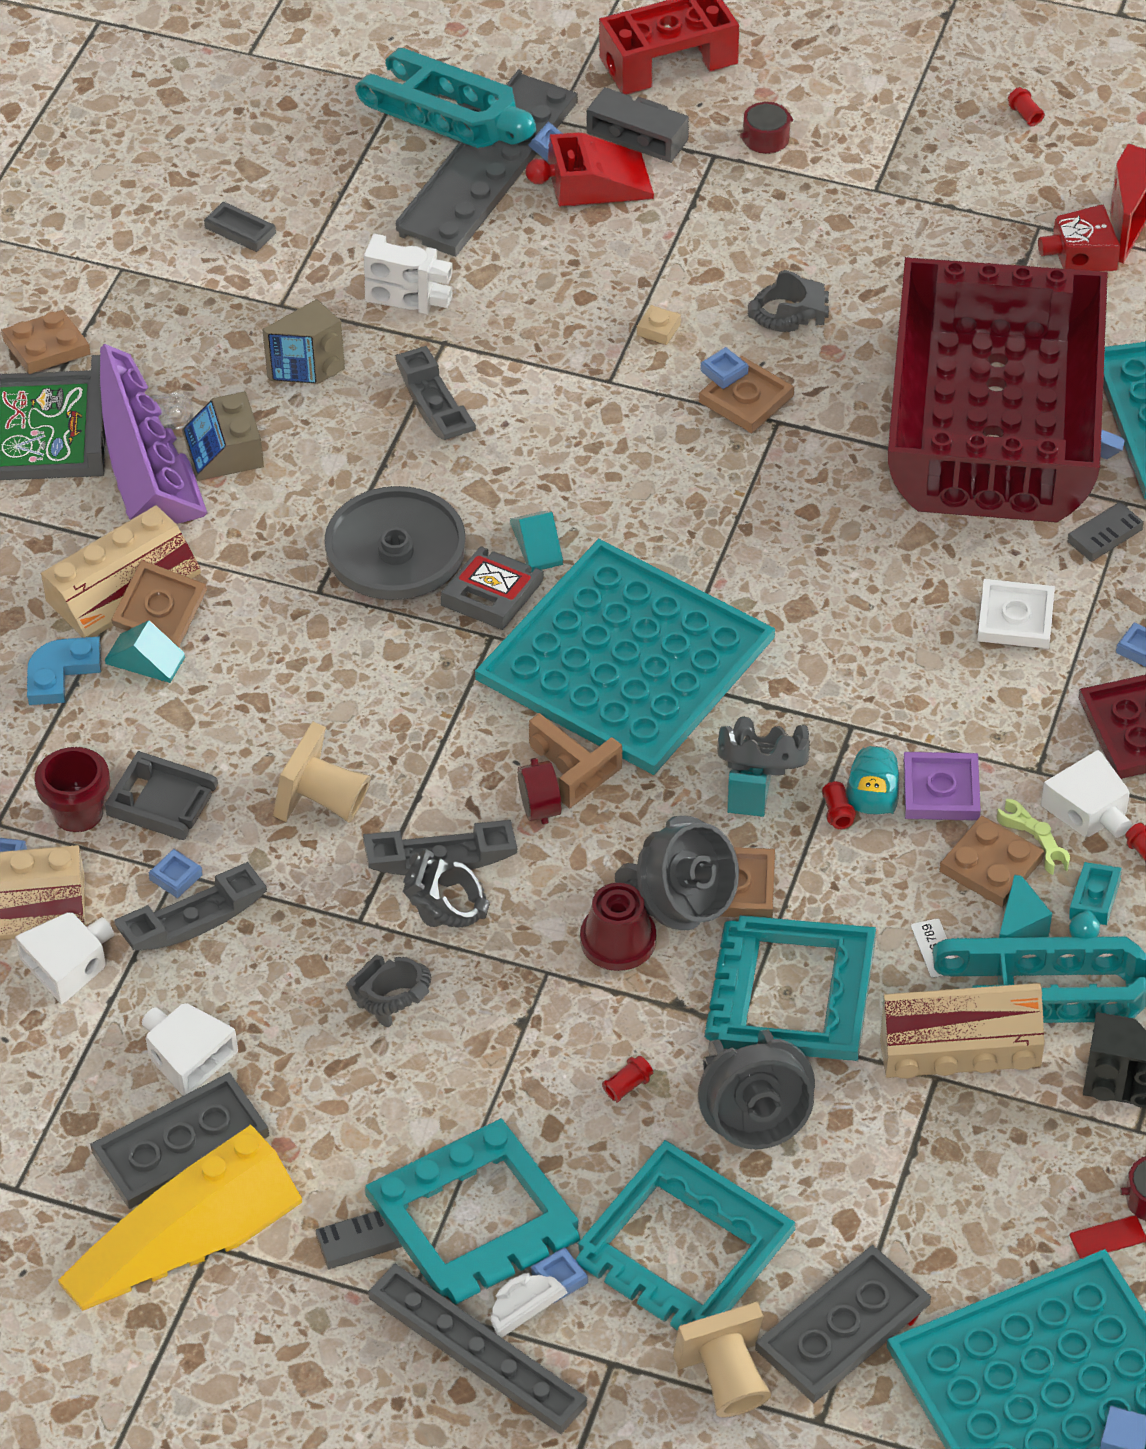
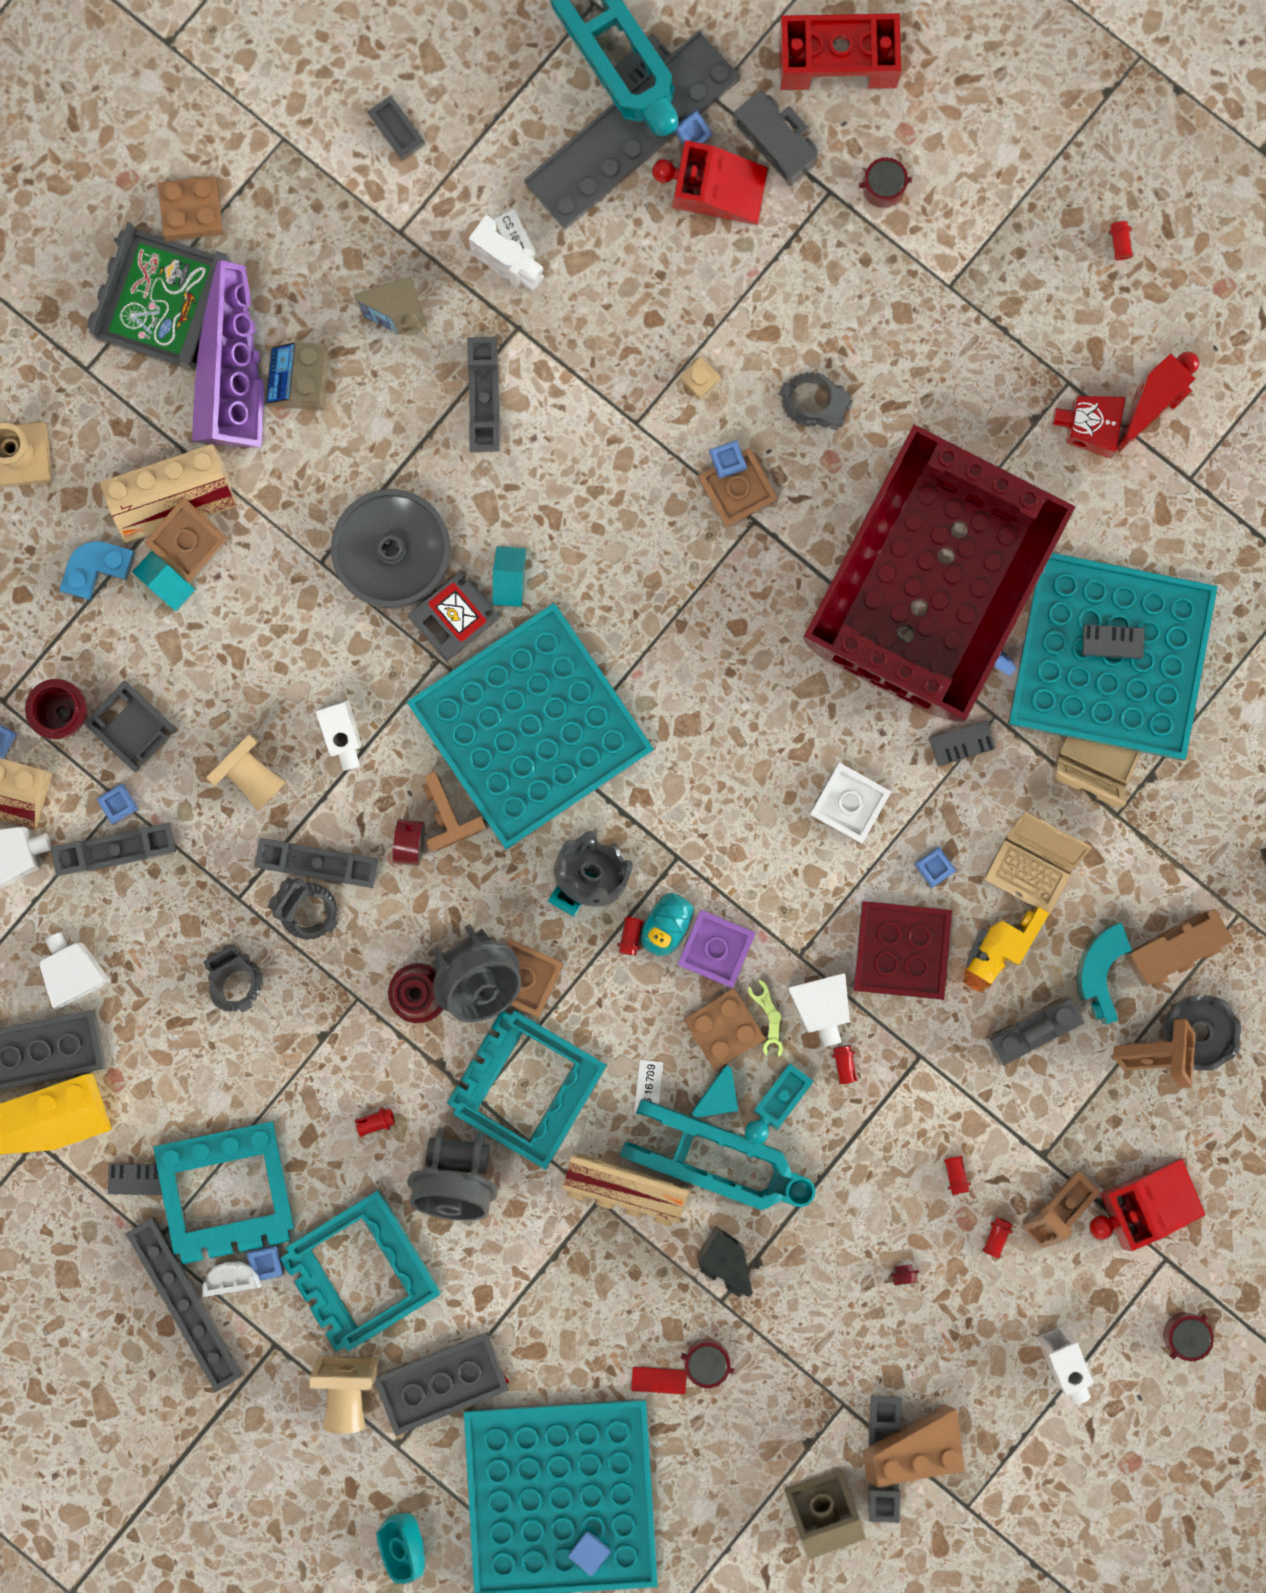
camera: 25 degrees right, 35 degrees up
(411, 712) = (340, 719): none -> white torso

